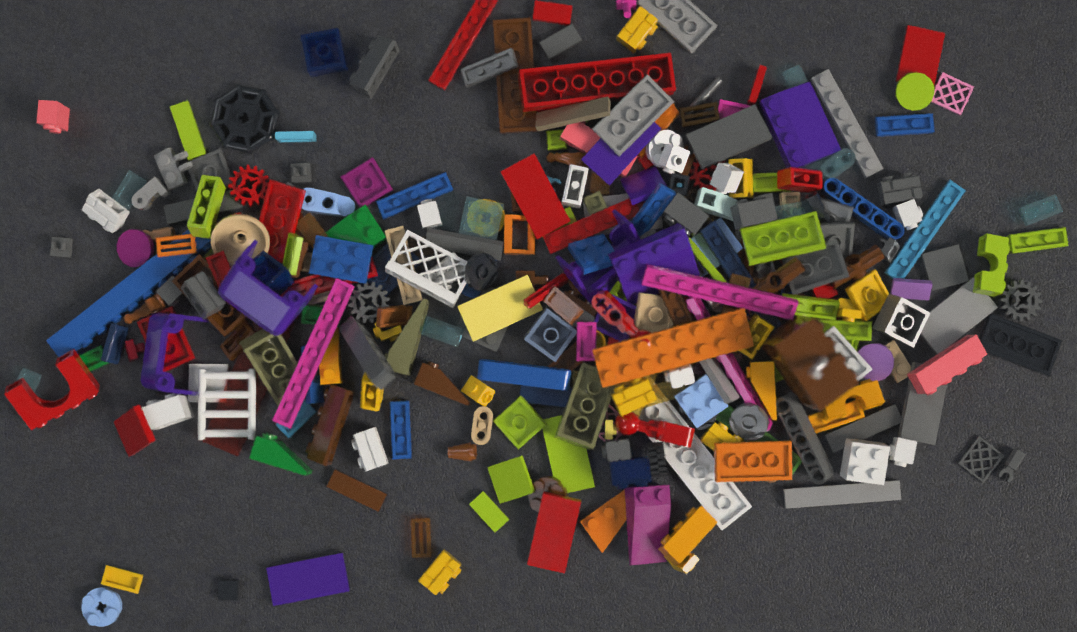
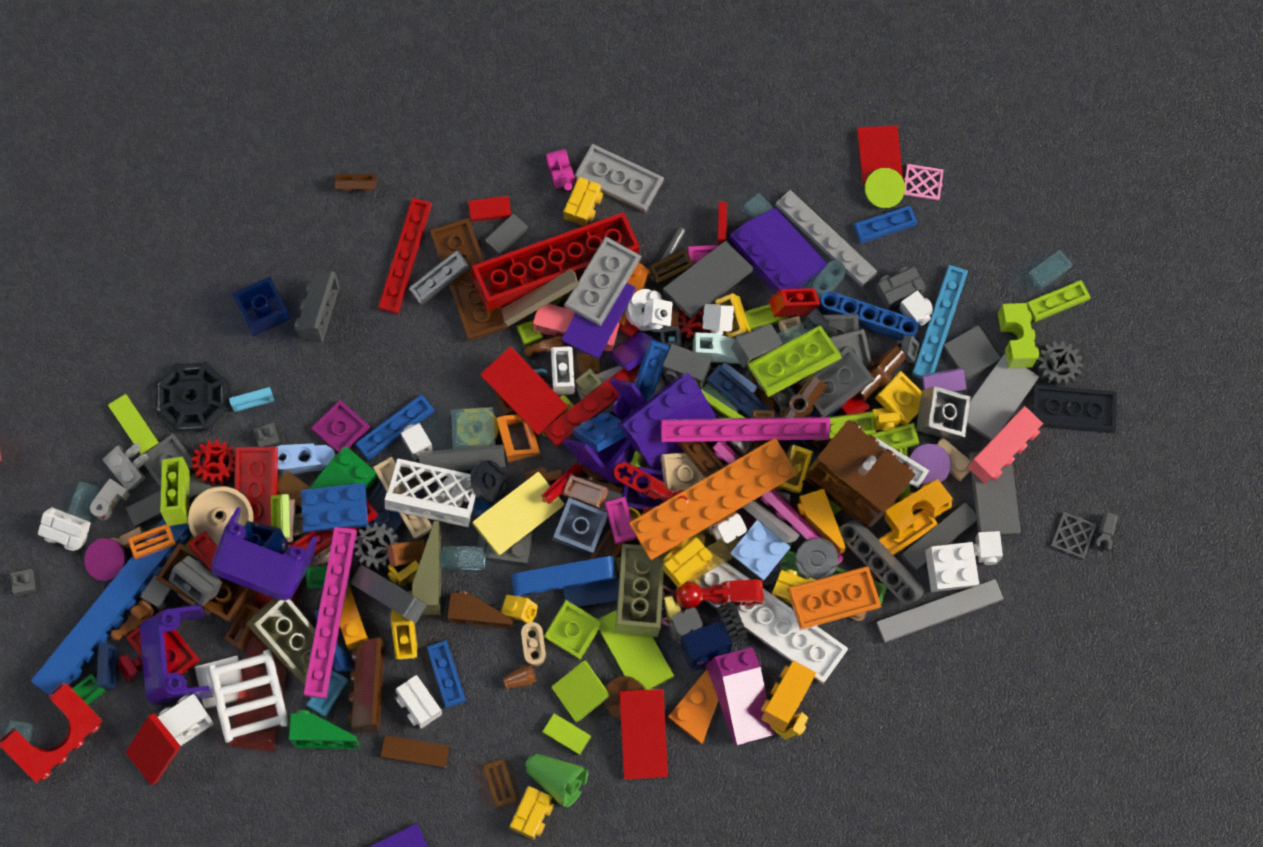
camera: 20 degrees left, 15 degrees down
(469, 549) = (557, 777): none -> bright green cone

